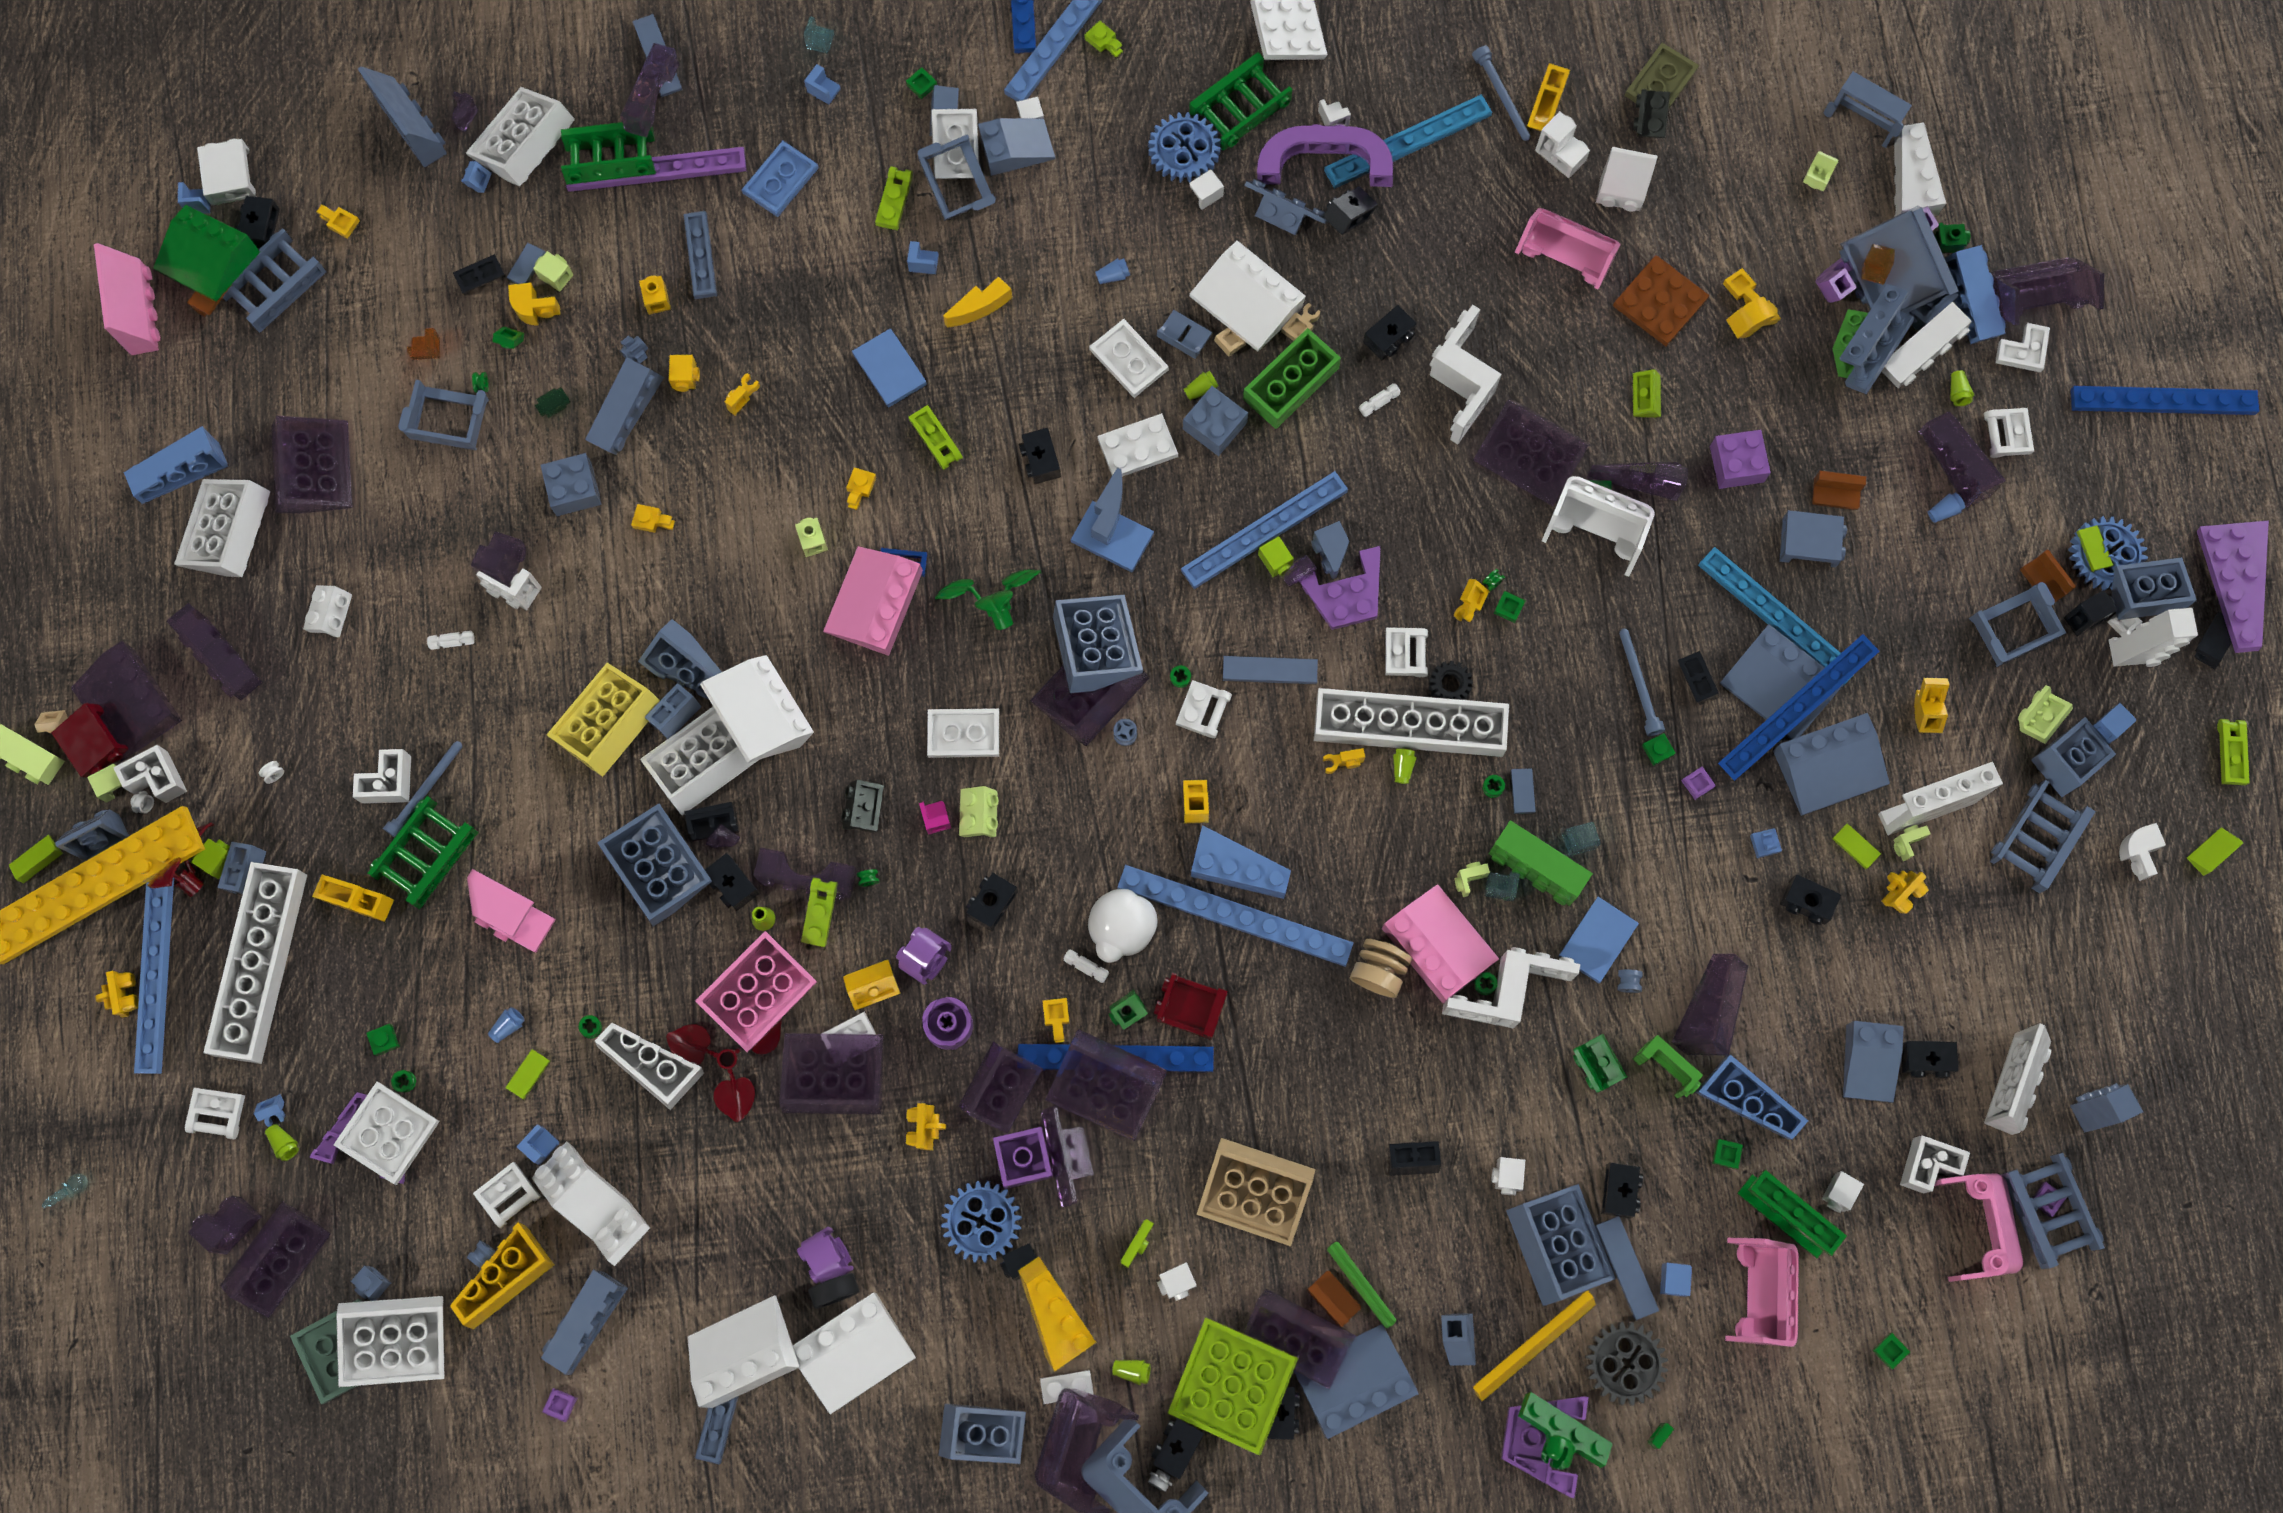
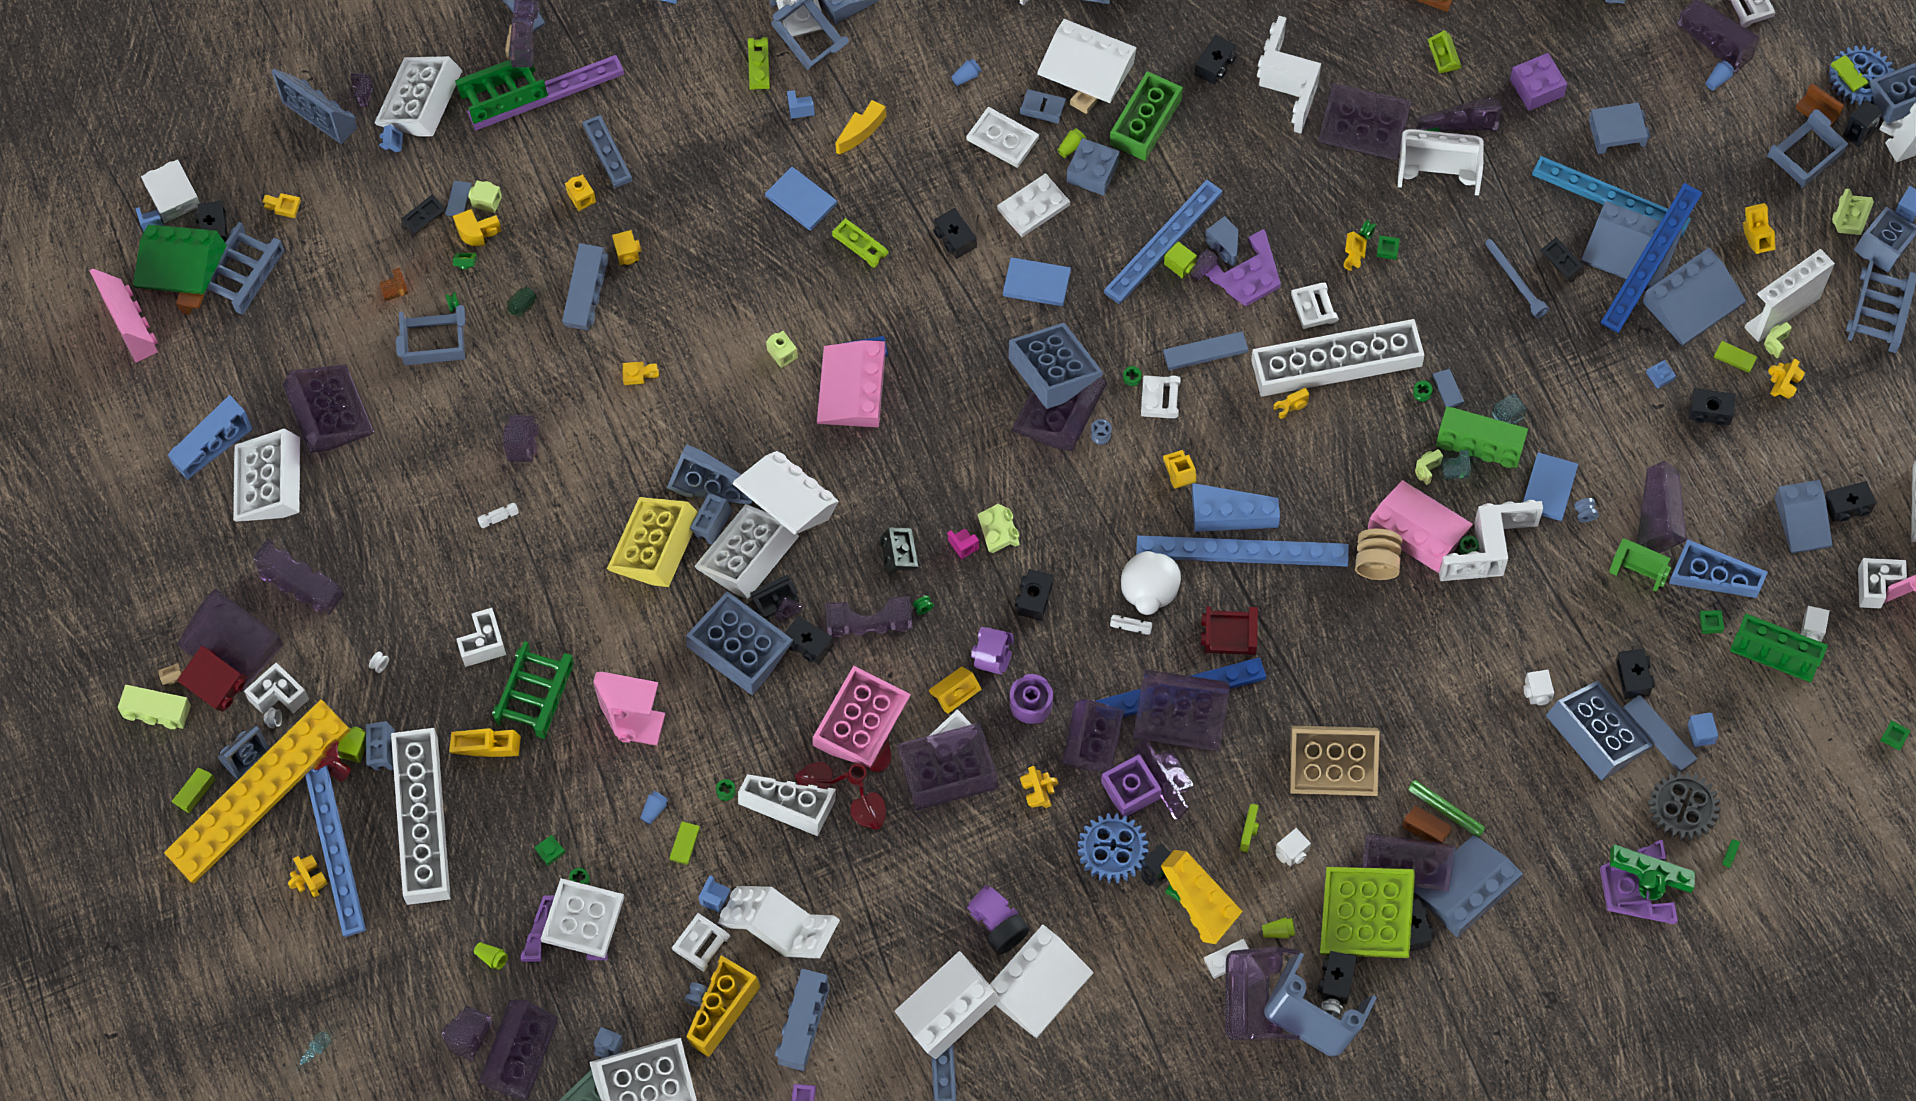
camera: 15 degrees left, 10 degrees down
(104, 783) = (237, 707): yellowish green panel -> none
(218, 1105) = (424, 941): white plate -> none
(269, 1108) = (471, 930): medium blue tile -> none
(327, 610) = (382, 519): white bracket -> none
(395, 826) = (502, 676): sand blue piece -> none
(520, 594) = (541, 462): white bracket -> none
(571, 484) = (560, 362): sand blue brick -> none
(634, 349) = (576, 237): sand blue gear -> none
(738, 398) = (681, 255): yellow plate -> none
(766, 921) = (844, 661): lime cone -> none
(780, 178) = (655, 73): medium blue tile -> none
(819, 913) = (892, 642): lime plate -> none
(859, 485) = (807, 298): yellow plate -> none
(963, 733) = (964, 469): white plate -> none
(982, 1434) = (1169, 1013): sand blue slope -> none
(997, 604) = (963, 351): green plant -> none
(1055, 1015) = (1120, 669): yellow plate -> none
(1108, 509) = (1028, 258): sand blue slope -> none
(1137, 1010) = (1185, 644): green brick -> none
(1298, 324) = (1137, 72): tan plate -> none
(1379, 400) = (1224, 115): white axle -> none
(1403, 765) = (1342, 393): lime cone -> none
(1414, 1158) = (1456, 696): black hinge -> none
(1455, 670) = (1358, 309): black tyre -> none
(1459, 1338) = (1541, 824): sand blue slope -> none
(1534, 1345) = (1604, 813): yellow tile -> none
(1599, 1063) = (1583, 580): green bracket -> none
(1658, 749) = (1548, 325): green plate -> none
(1698, 783) = (1590, 343): medium lavender tile -> none
(1771, 1292) = (1781, 713): bright pink windscreen -> none
(1838, 490) = (1626, 84): dark orange panel -> none

